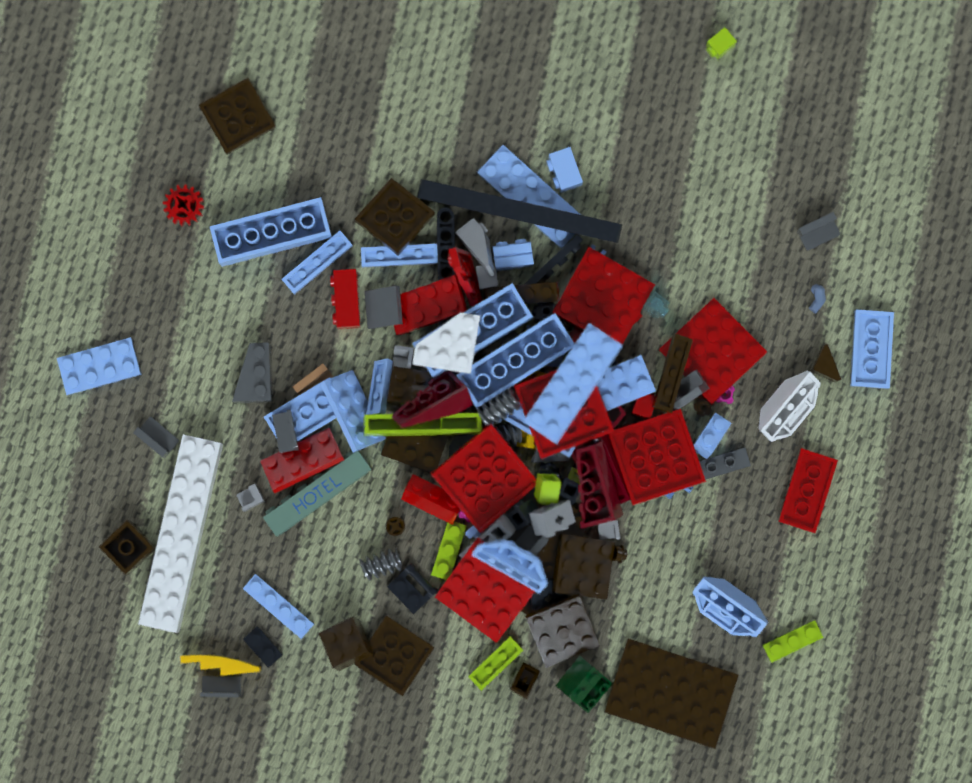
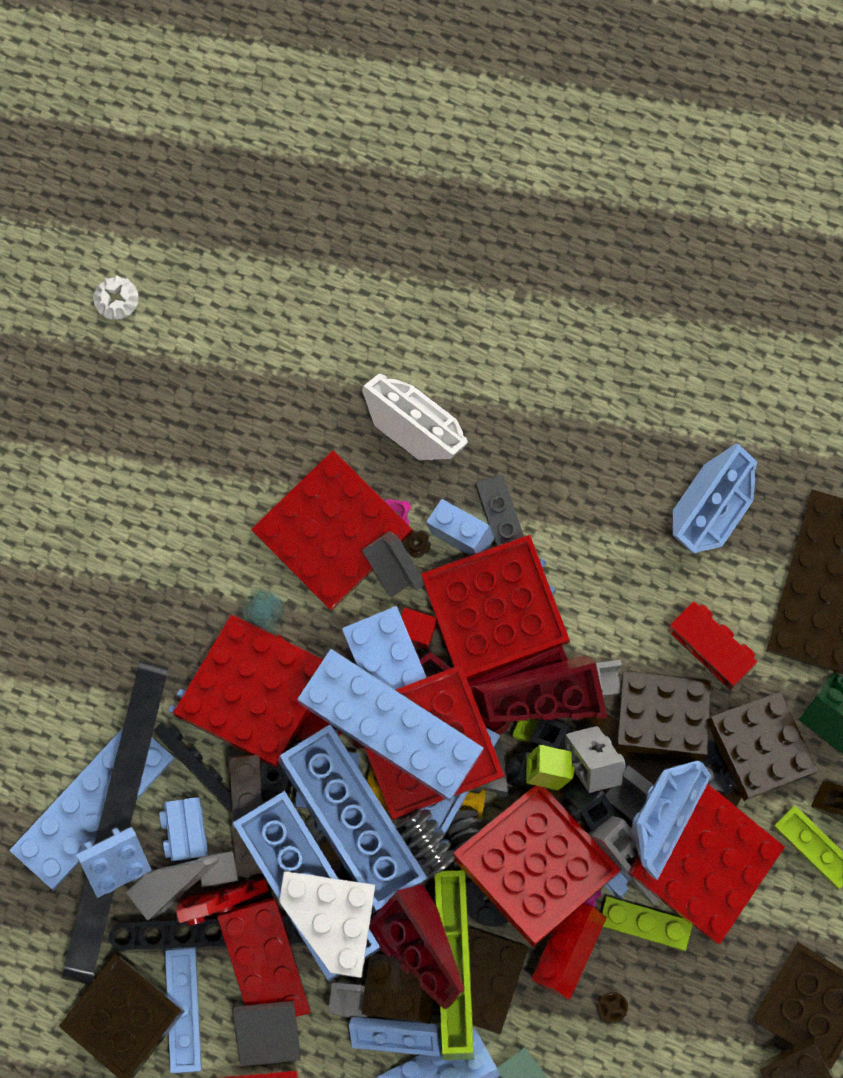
camera: 90 degrees left, 10 degrees down
(381, 564) = (672, 1028): dark grey piece -> none
(407, 592) = (715, 986): black plate -> none
(489, 209) = (114, 861): none -> light blue plate
(564, 170) = (51, 753): light blue brick -> none
(619, 554) = (641, 663): dark brown plate -> none
(631, 602) = (712, 645): none -> red brick
(672, 373) = (368, 585): dark brown plate -> none
(792, 641) = (758, 414): lime plate -> none
(807, 490) = (537, 393): red plate -> none
(819, 231) = (152, 380): dark grey panel -> none
(820, 298) = (251, 378): sand blue arm -> none
(825, 365) = (351, 369): dark brown slope -> none
(869, 207) = (117, 309): none -> white gear
(872, 349) = (327, 305): light blue plate -> none

